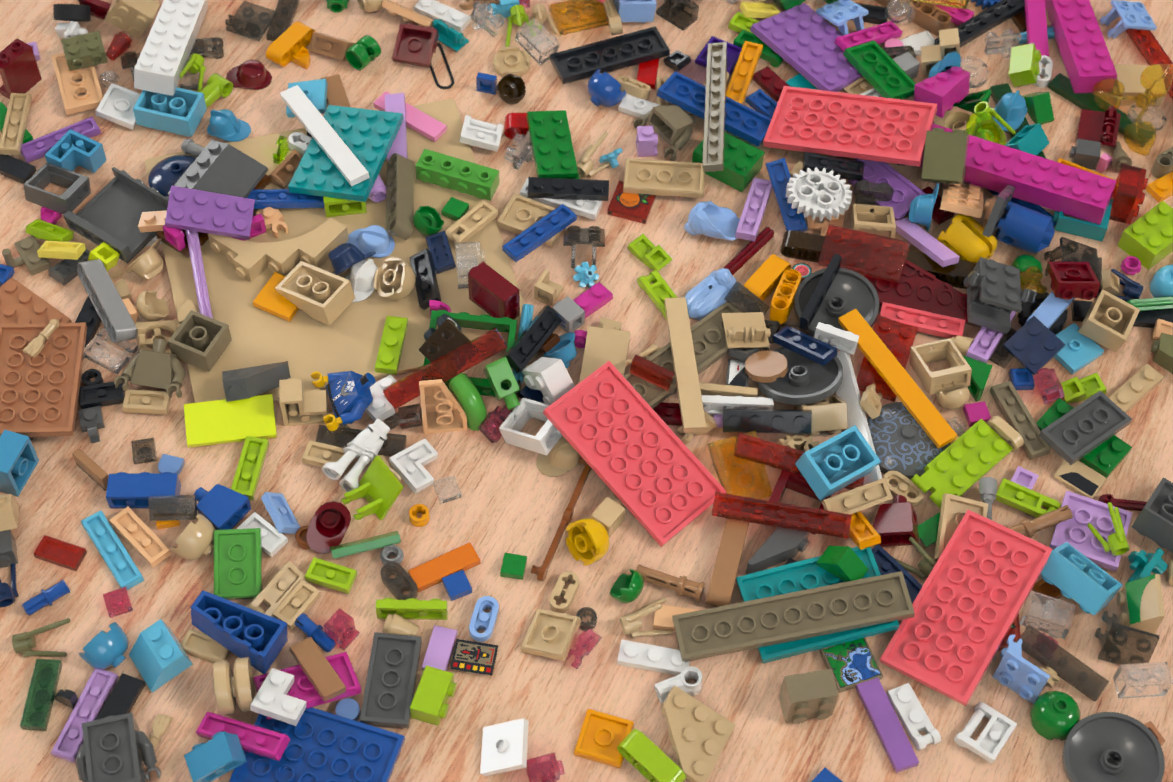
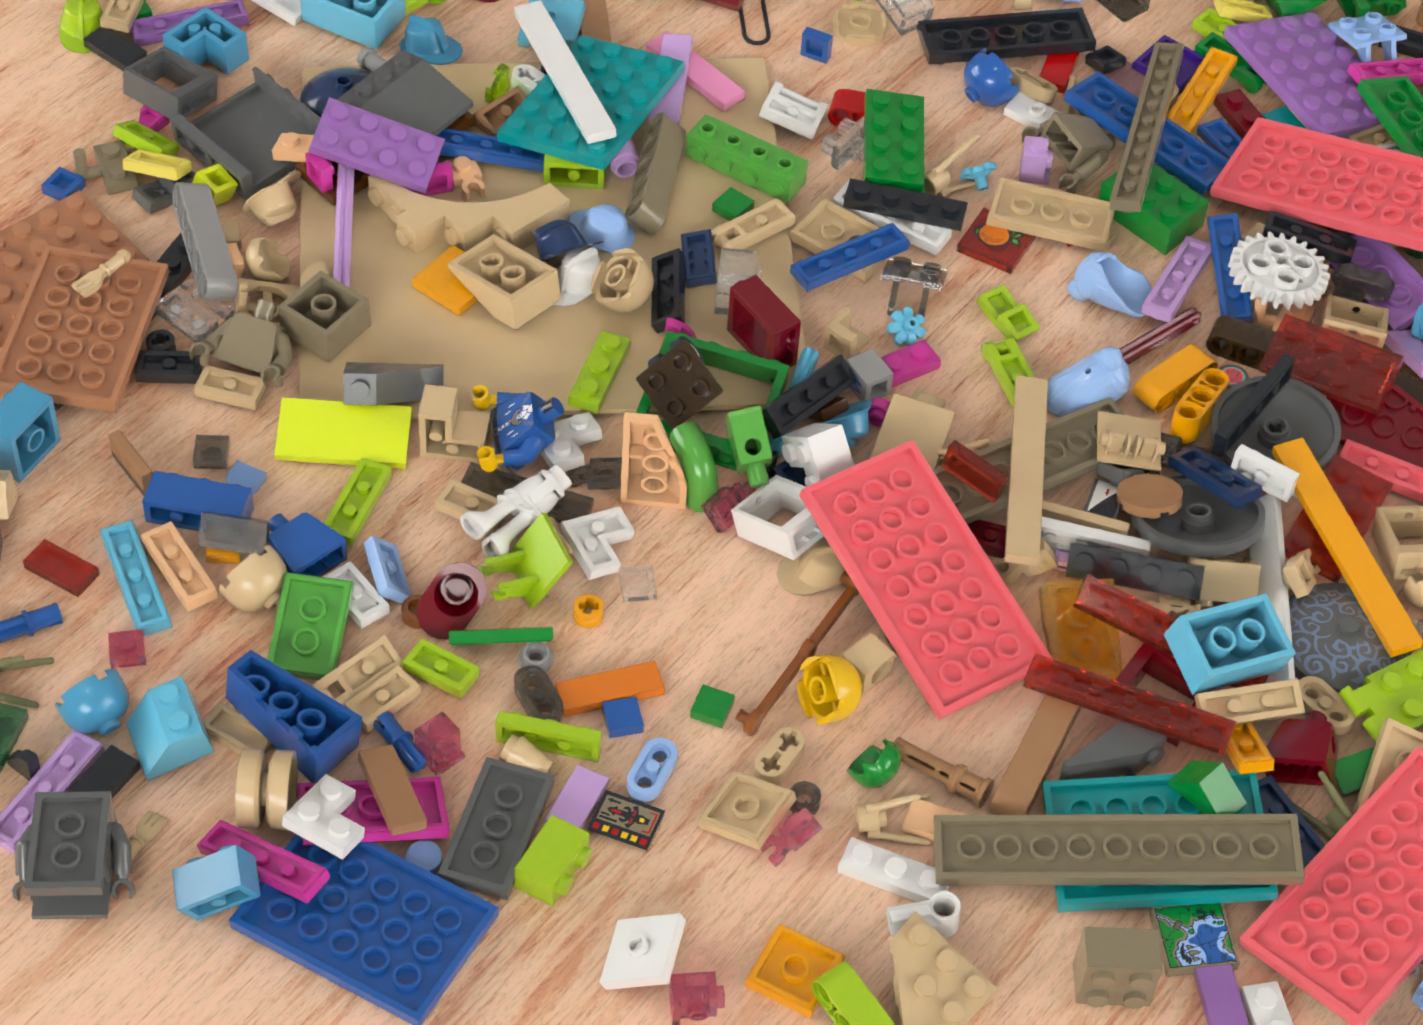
camera: 10 degrees right, 5 degrees down
(91, 420) = (145, 400): dark grey plate -> none
(427, 220) = (689, 212): green hair -> none
(446, 367) = (674, 407): clear red plate -> none
(511, 89) = (851, 58): dark brown hair -> none
(745, 300) = (1136, 399): clear smoke plate -> none

